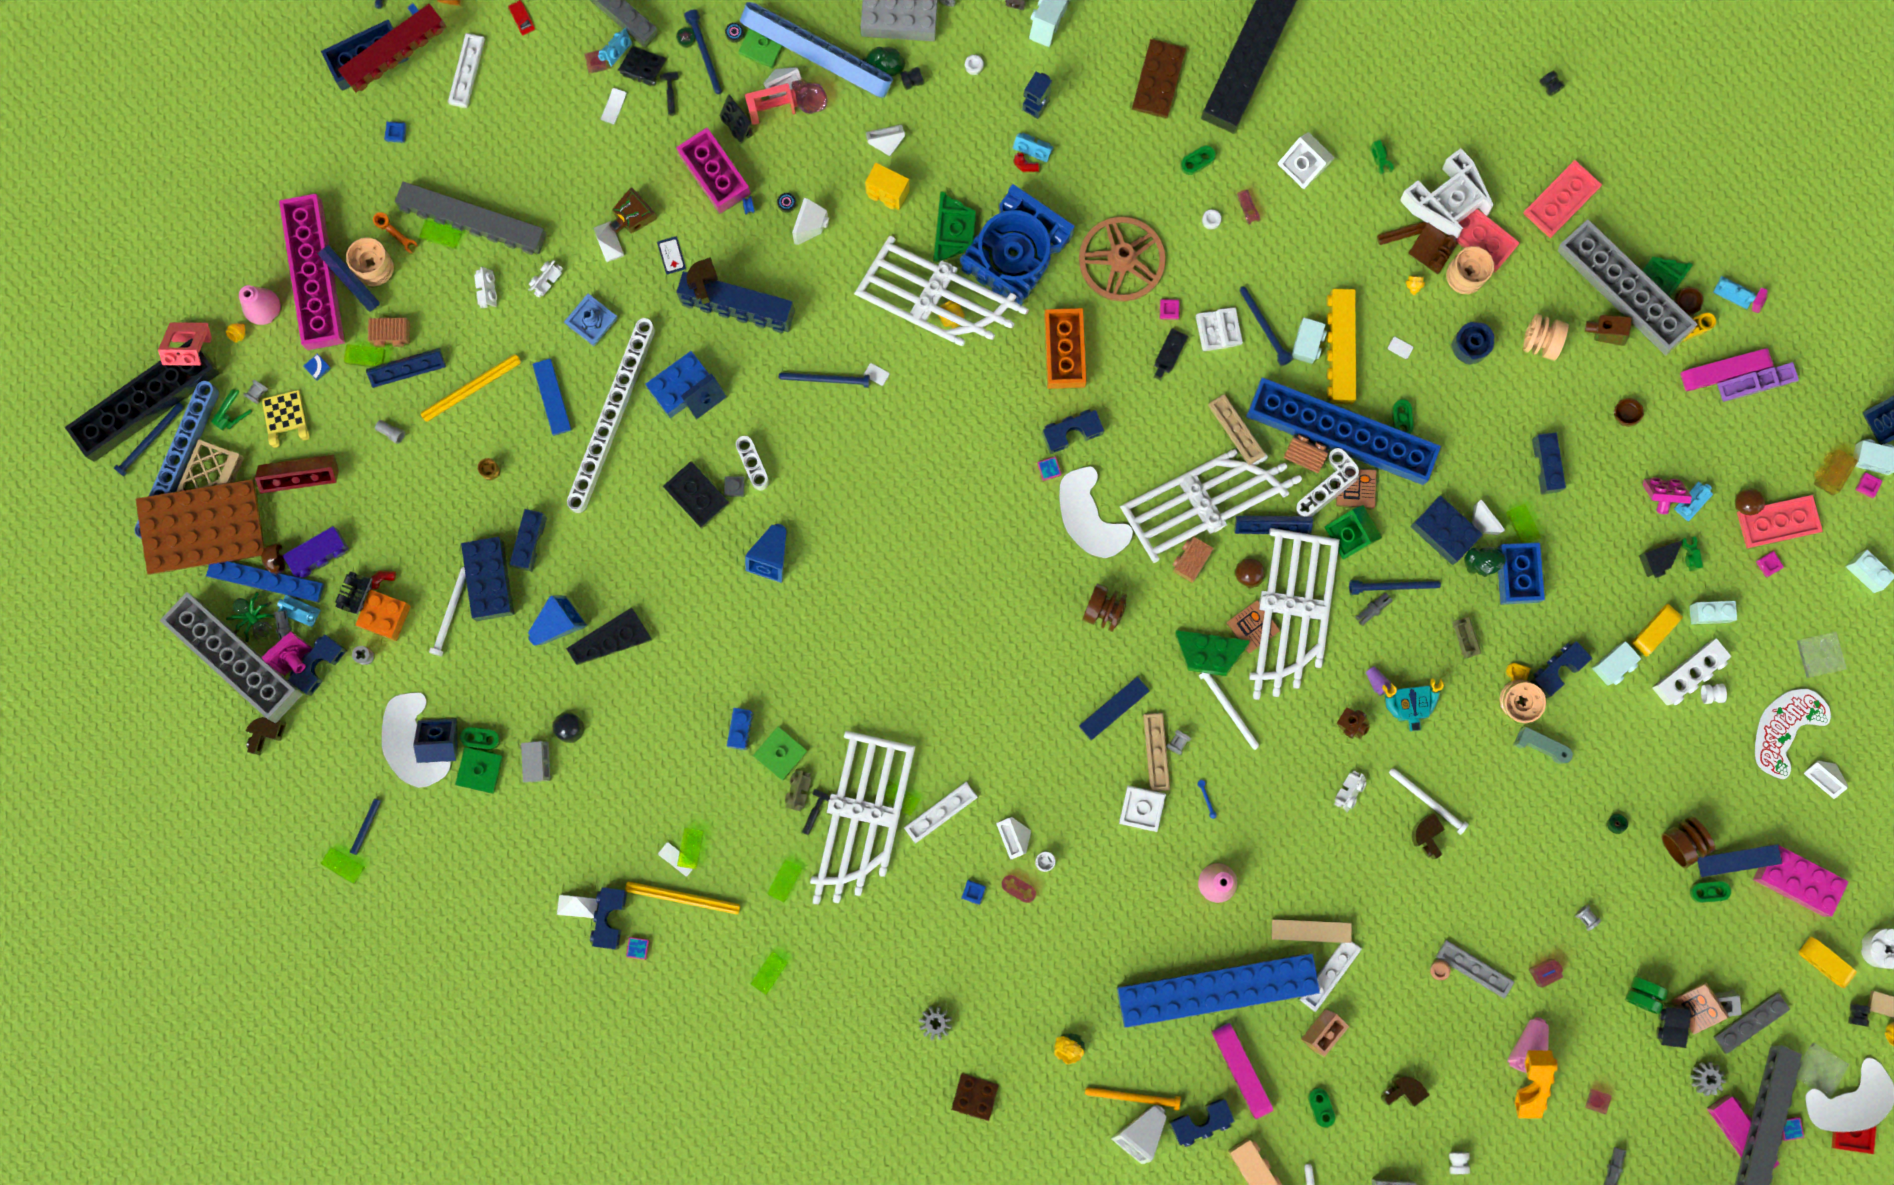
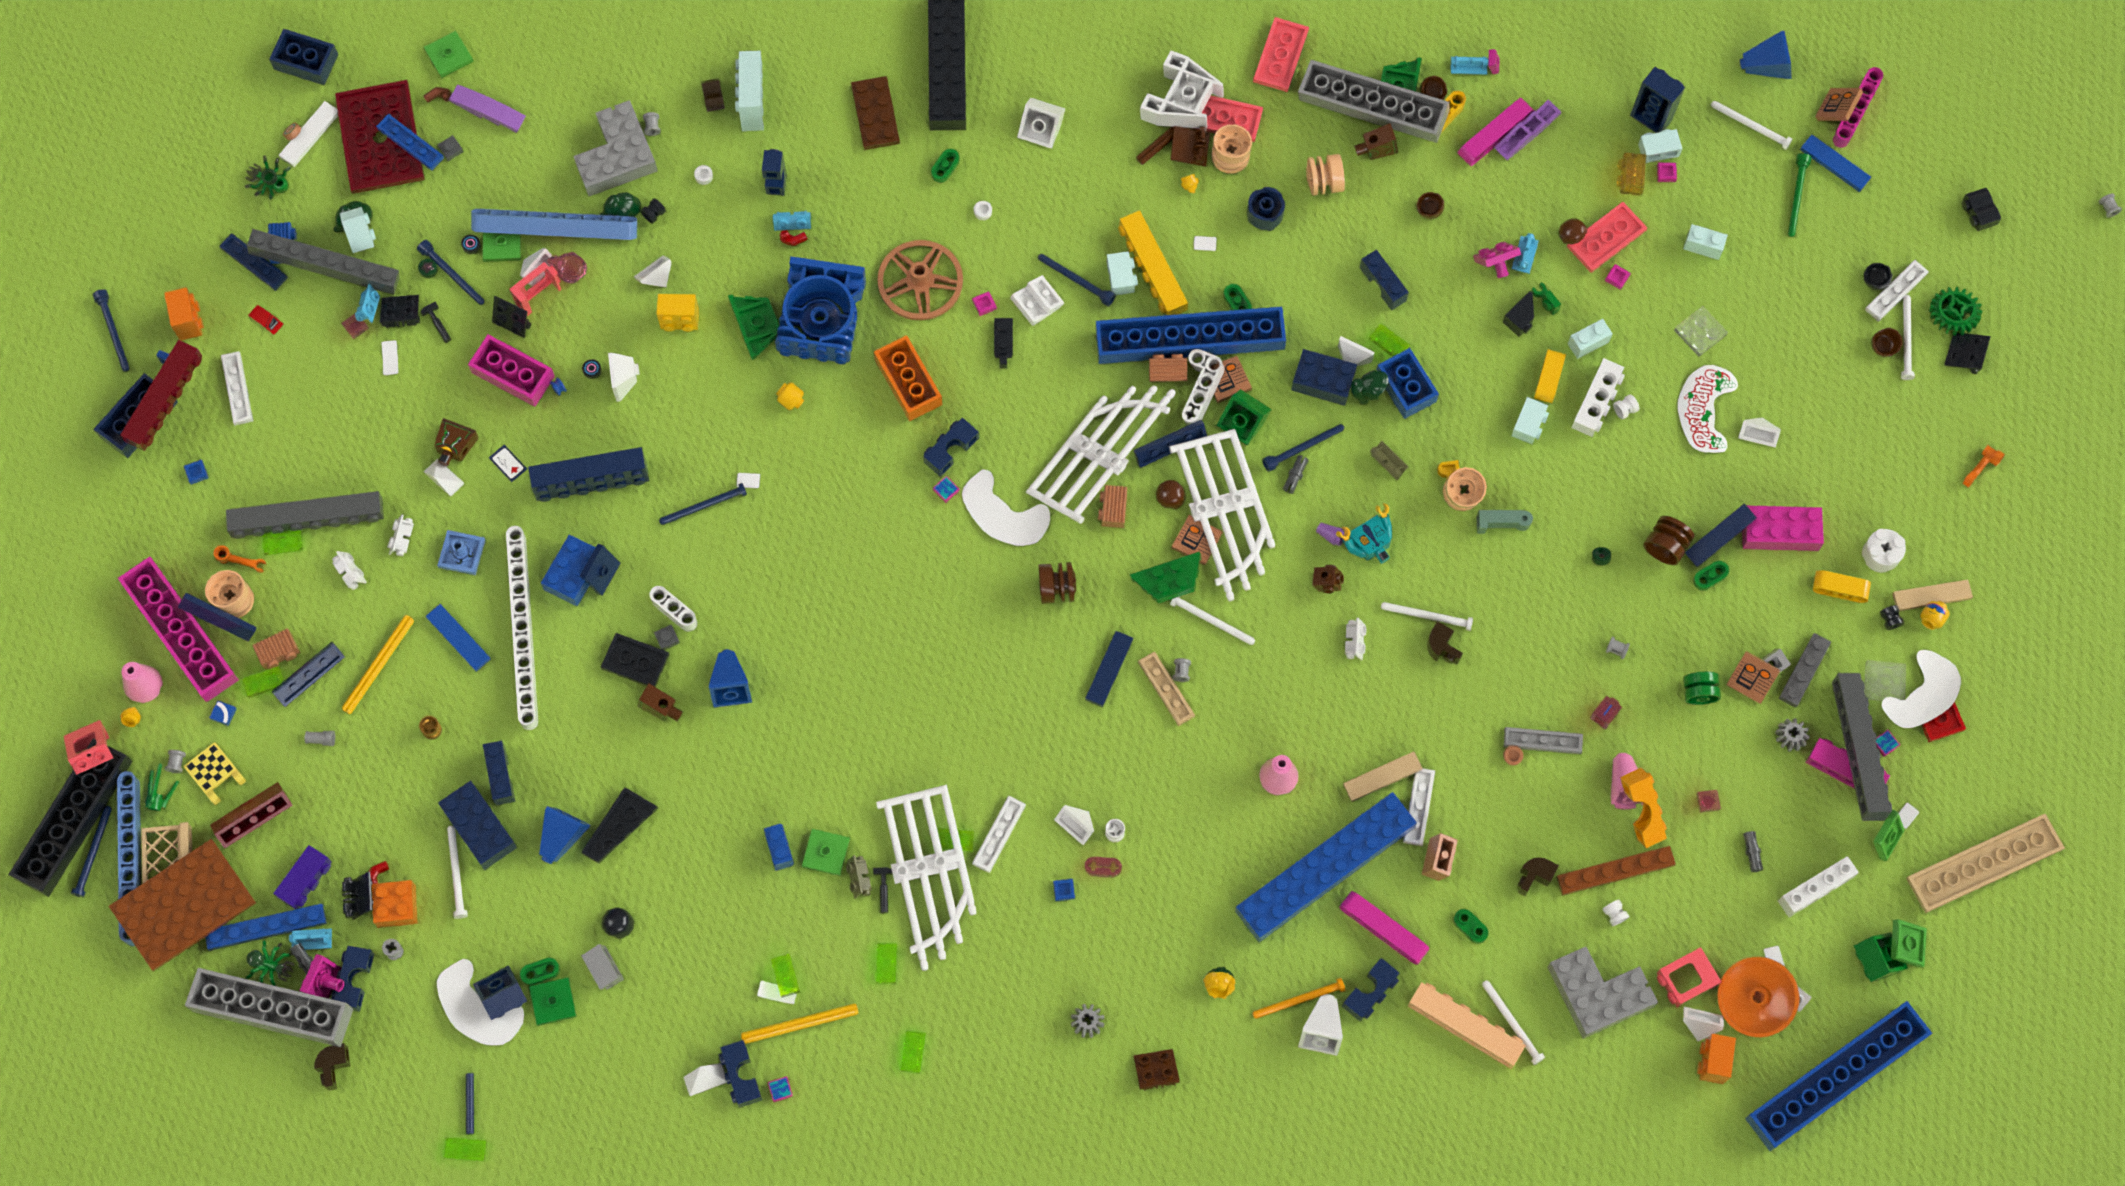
camera: 25 degrees left, 10 degrees down
(272, 559) = (263, 901): reddish brown hair -> none
(691, 540) = (653, 698): none -> reddish brown torso
(699, 275) = (547, 460): dark brown brick -> none
(932, 293) = (764, 385): white piece -> none
(1142, 808) = (1178, 742): white tile -> none
(1201, 784) = (1220, 697): blue hinge -> none
(1236, 429) = (1096, 377): tan tile -> none
(1247, 204) = (1008, 183): clear pink bar -> none
(1379, 154) = (1102, 87): green plate -> none
(1480, 1122) = (1616, 870): none -> dark orange plate
(1572, 656) = (1489, 433): dark blue arch -> none
(1674, 1025) = (1739, 702): black brick -> none

